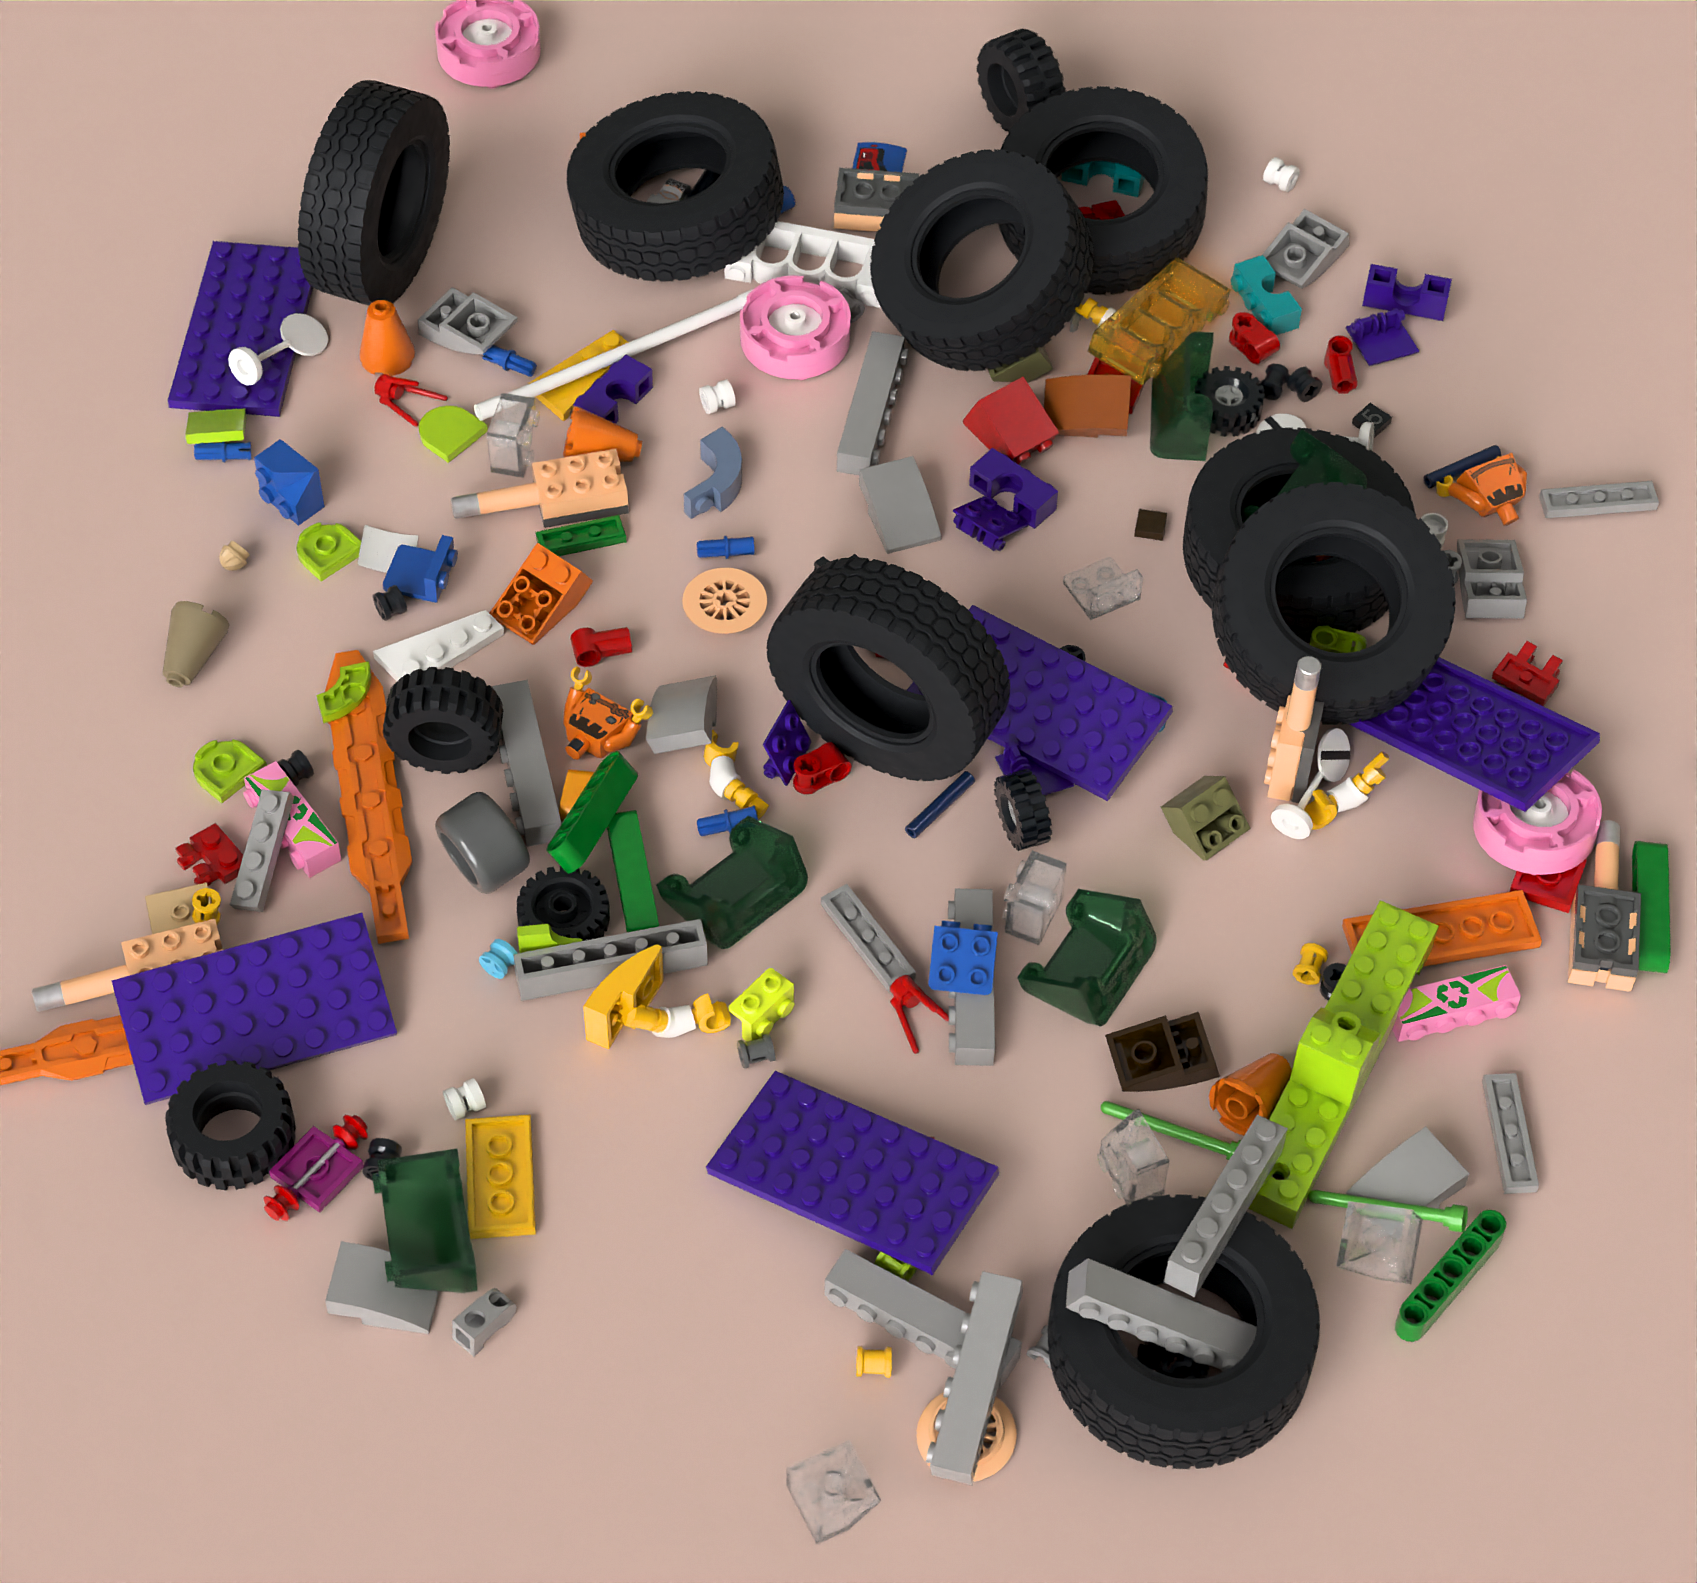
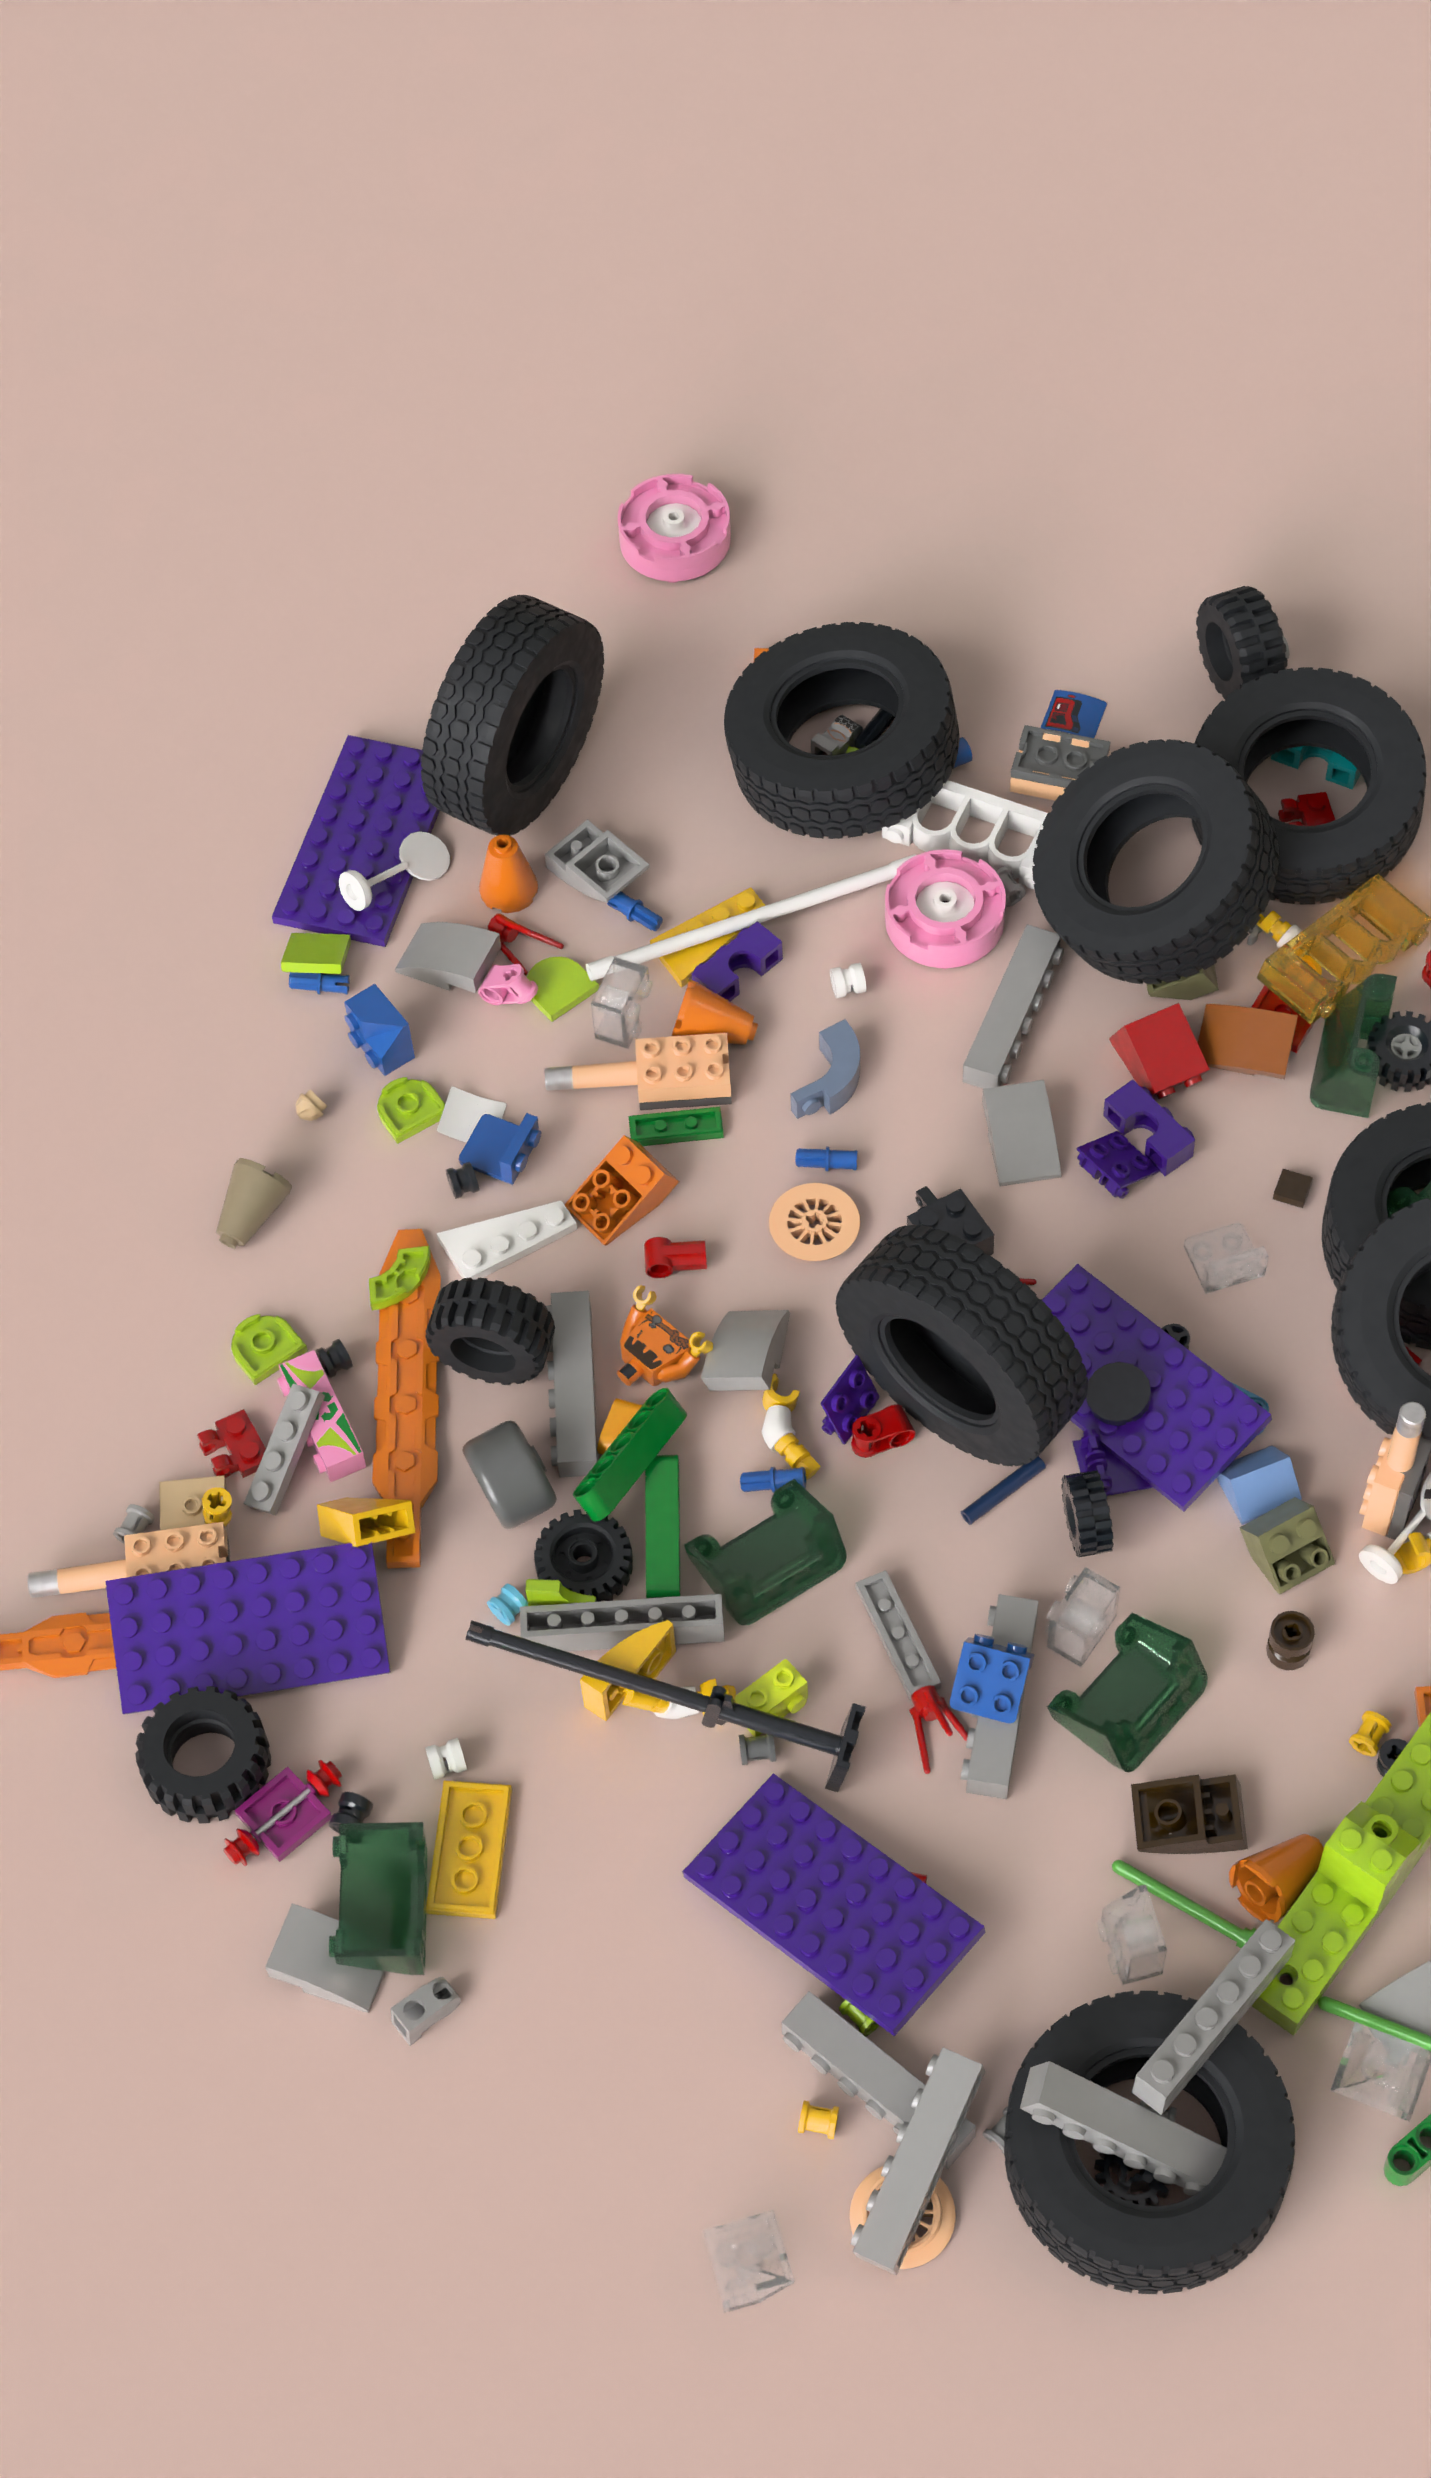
camera: 15 degrees right, 5 degrees up
(126, 933) = (135, 1516): none -> light grey bush
(343, 414) = (450, 955): none -> light grey slope
(351, 899) = (365, 1520): none -> yellow slope
(402, 433) = (507, 985): none -> bright pink piece
(715, 1016) = (718, 1707): none -> black piece
(1032, 706) = (1118, 1393): none -> black tile
(1169, 769) = (1259, 1483): none -> medium blue slope
(1224, 894) = (1290, 1640): none -> dark brown wheel

